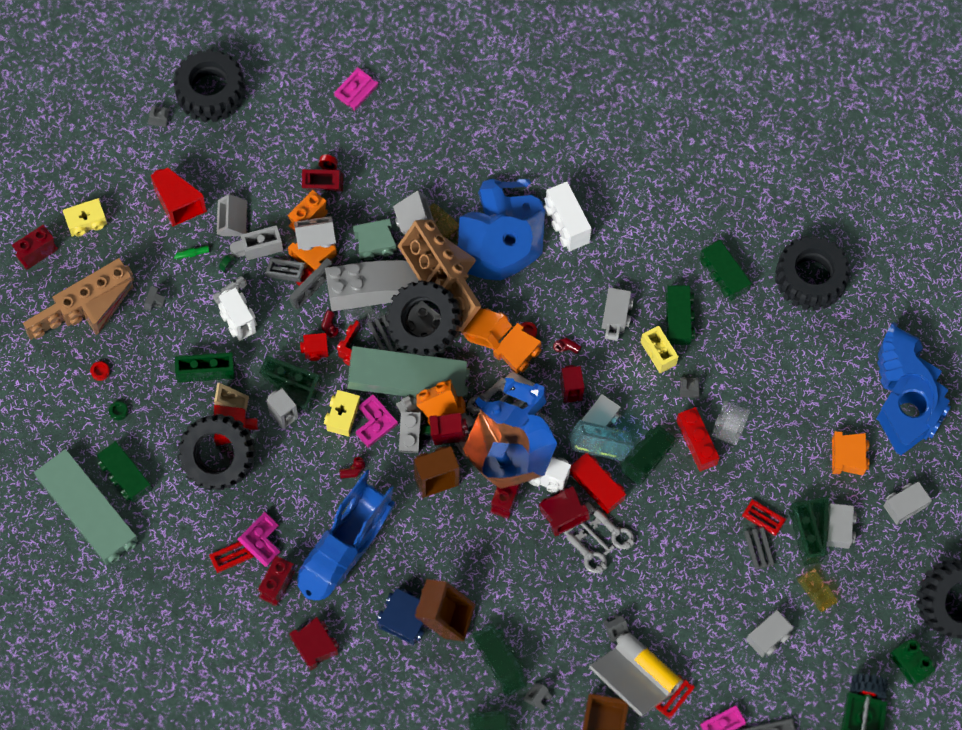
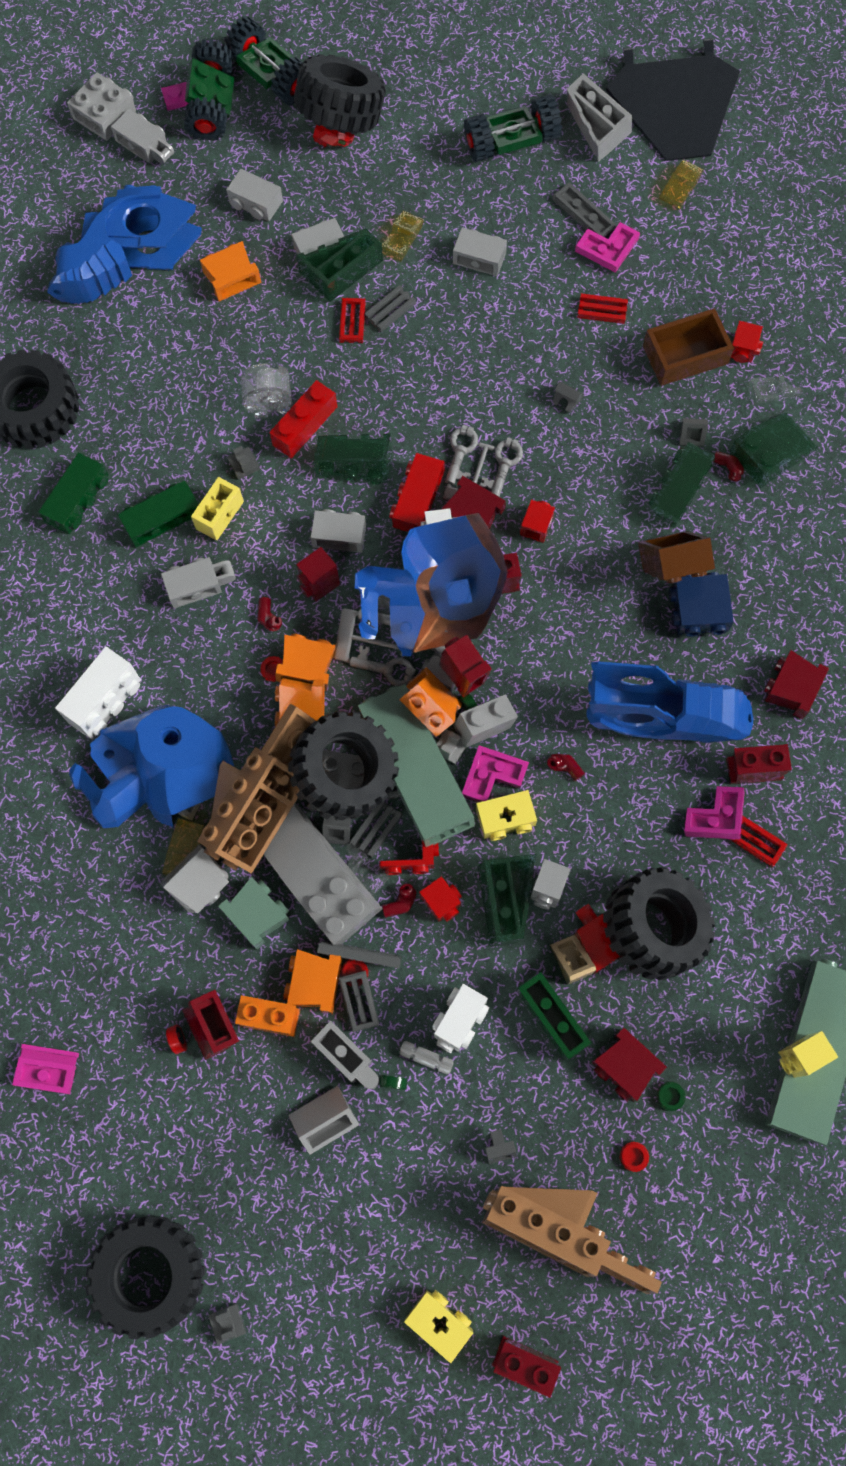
camera: 115 degrees left, 5 degrees up
(87, 482) = (807, 1055): none -> light yellow brick
(123, 473) = (747, 1033): dark green brick -> none
(150, 395) = (628, 1066): none -> dark red hips
(177, 196) = (340, 1211): red slope -> none
(192, 252) = (401, 1142): green piece -> none
(315, 233) = (296, 980): light grey brick -> none
(436, 471) = (521, 654): reddish brown piece -> none
(491, 706) = (732, 464): none -> dark red arm
(531, 549) = (537, 520): none -> red brick
(600, 440) = (371, 505): clear light blue brick -> none
(636, 674) = (610, 344): light grey door -> none
(913, 662) = (426, 115): dark green brick -> none

